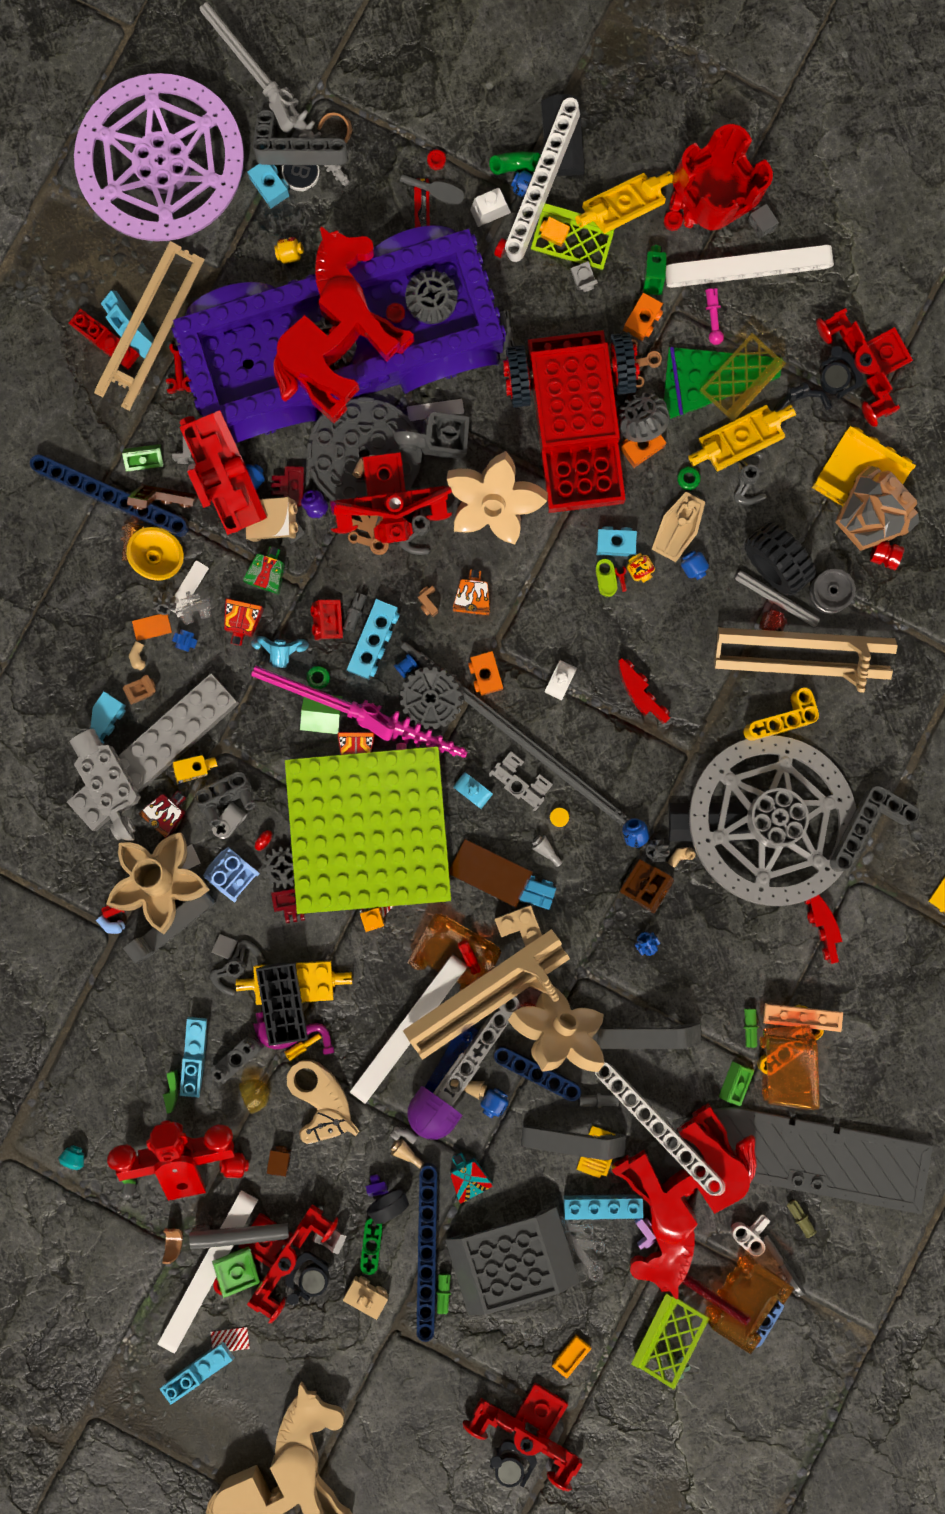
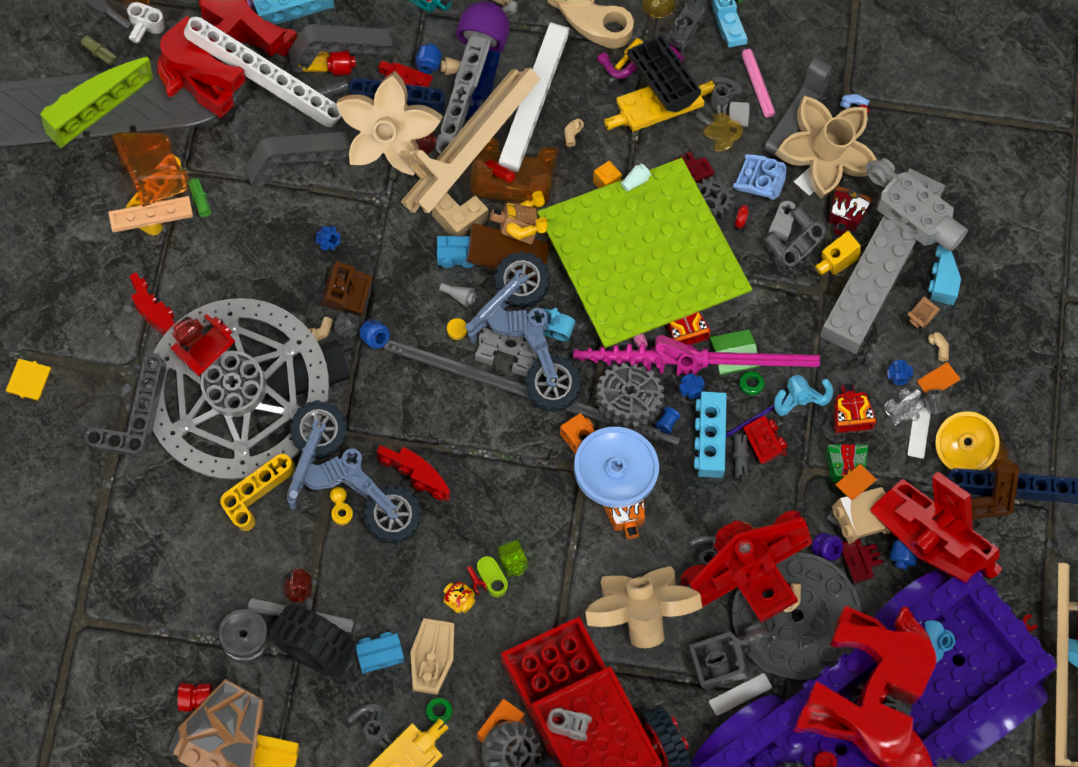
camera: 155 degrees right, 20 degrees down
(143, 457) = (1024, 541): bright green slope -> none
(192, 975) = (758, 83): none -> bright pink axle
(248, 935) = (720, 132): none -> clear yellow plate
(262, 379) = (936, 634): none -> dark azure plate
(267, 547) = (856, 482): none -> orange sticker
(328, 645) = (751, 420): none -> dark purple axle
(349, 901) = (636, 177): none -> light aqua cone
(373, 689) = (691, 386): none -> blue gear
(385, 983) = (571, 130): none -> tan arm
(427, 606) = (670, 486): medium nougat bracket -> none
(469, 898) = (521, 220): none -> torso
(470, 629) = (616, 467): none -> light blue dish
(503, 789) = (524, 325): none -> piece
(520, 1092) = (408, 75): none -> red hinge
(560, 680) = (503, 457): white beam -> none
(579, 1123) = (340, 63): none -> red head
(584, 585) = (513, 558): none -> clear neon green brick
(594, 406) = (570, 725): none -> light grey piece
(607, 548) = (503, 605): medium azure brick -> none
(694, 565) = (402, 618): blue head -> none
(709, 706) = (338, 471): none -> piece
(714, 693) = (338, 496): none -> yellow plate
(723, 541) = (379, 652): none -> dark azure brick
(736, 1083) = (198, 145): bright green slope -> none
(795, 856) = (206, 349): none -> red panel
(804, 881) = (188, 331): none -> clear red head
(828, 1153) = (93, 100): none -> lime slope
(852, 672) = (198, 563): tan piece -> none

